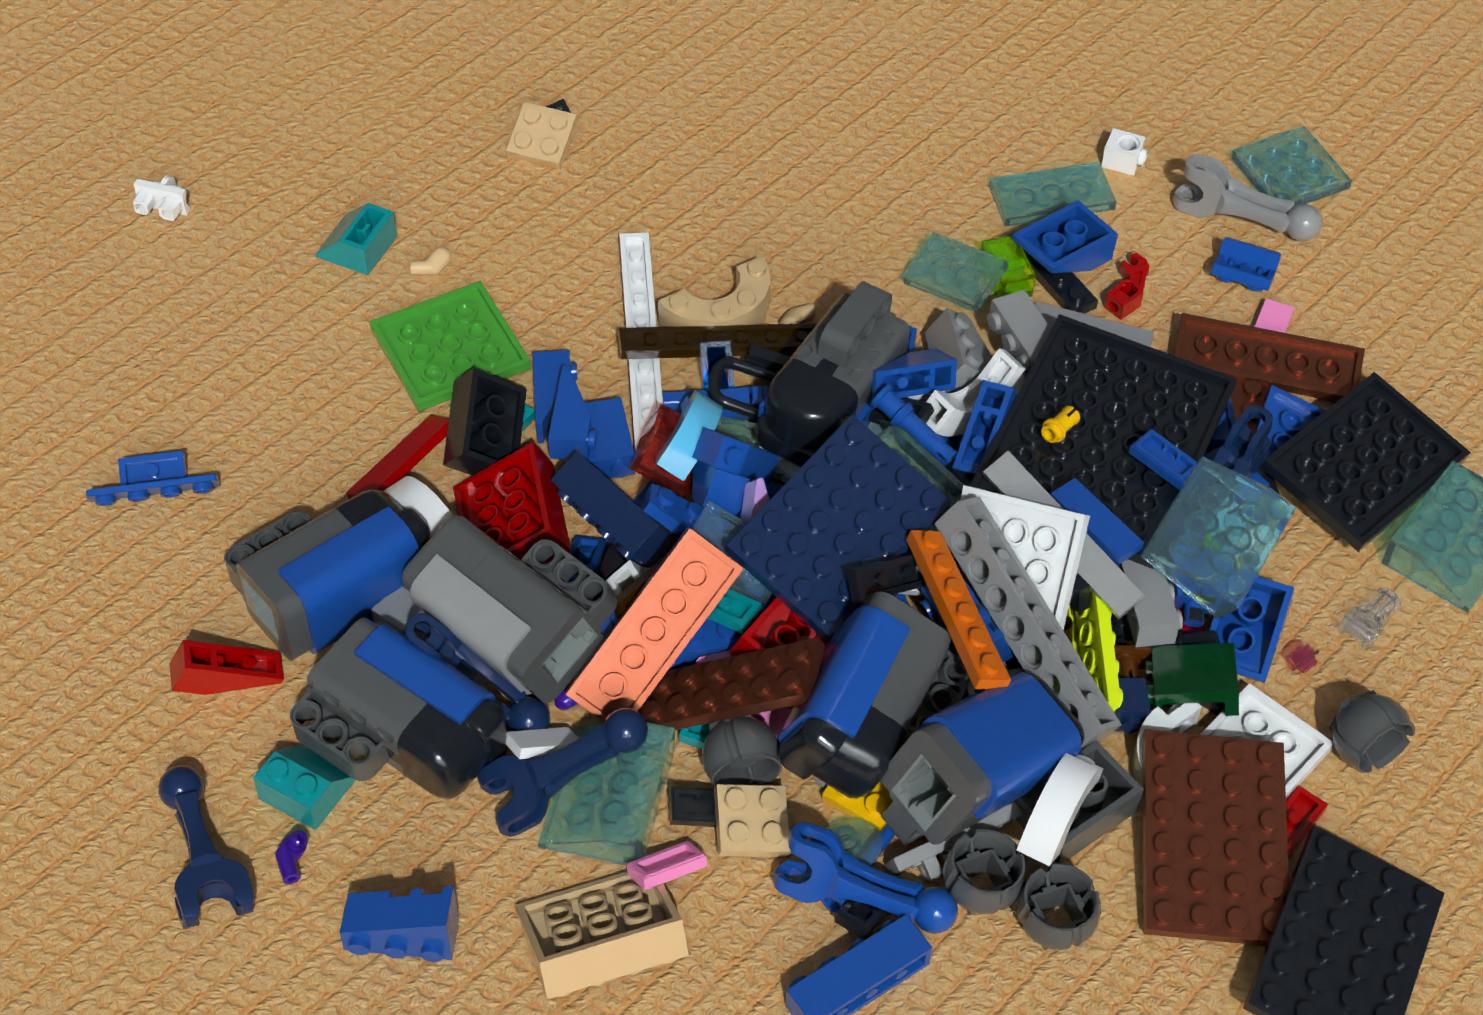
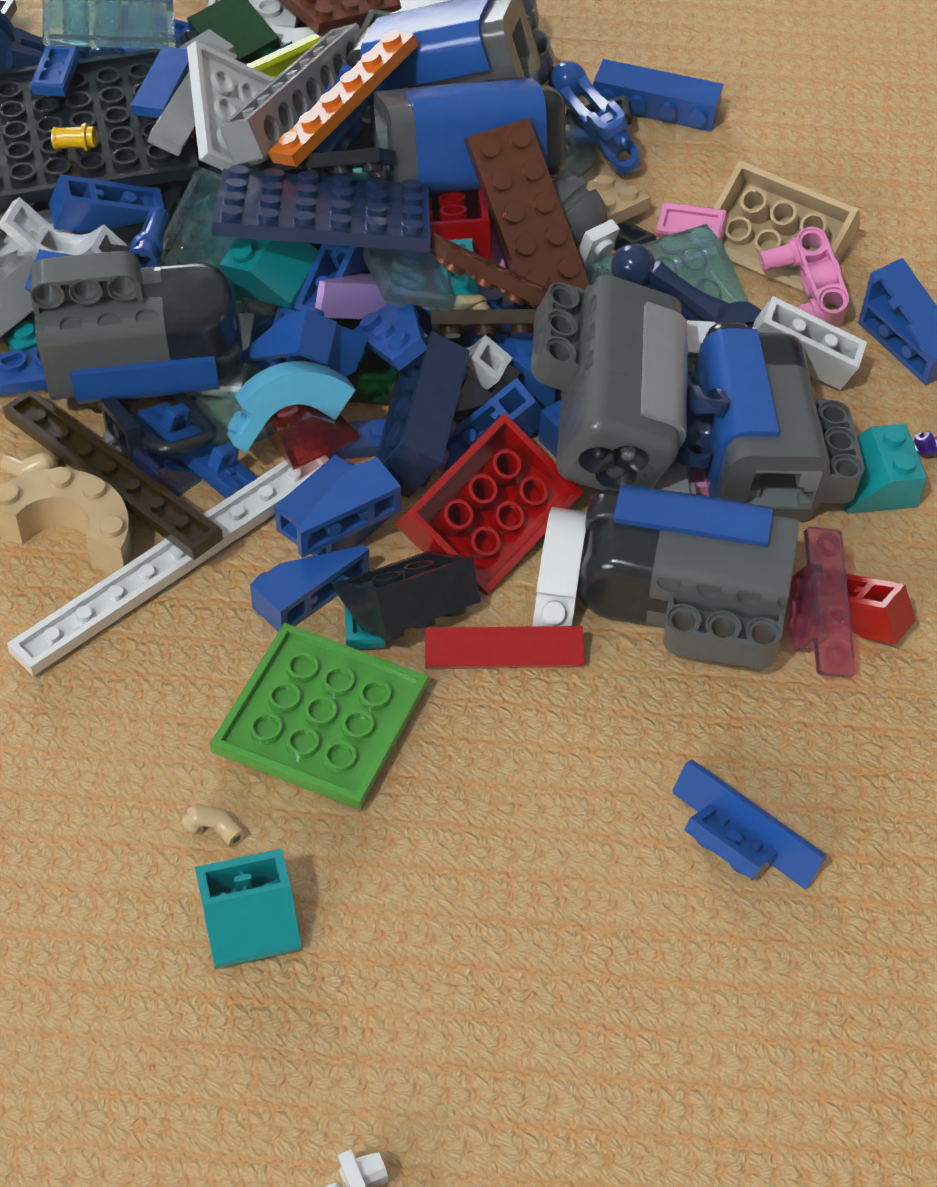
camera: 130 degrees left, 0 degrees up
(229, 627) = (822, 605): none -> clear pink bracket
(449, 812) = (829, 351): none -> white brick
(514, 894) = (818, 273): none -> bright pink piece
(686, 748) = (598, 242): none -> white plate

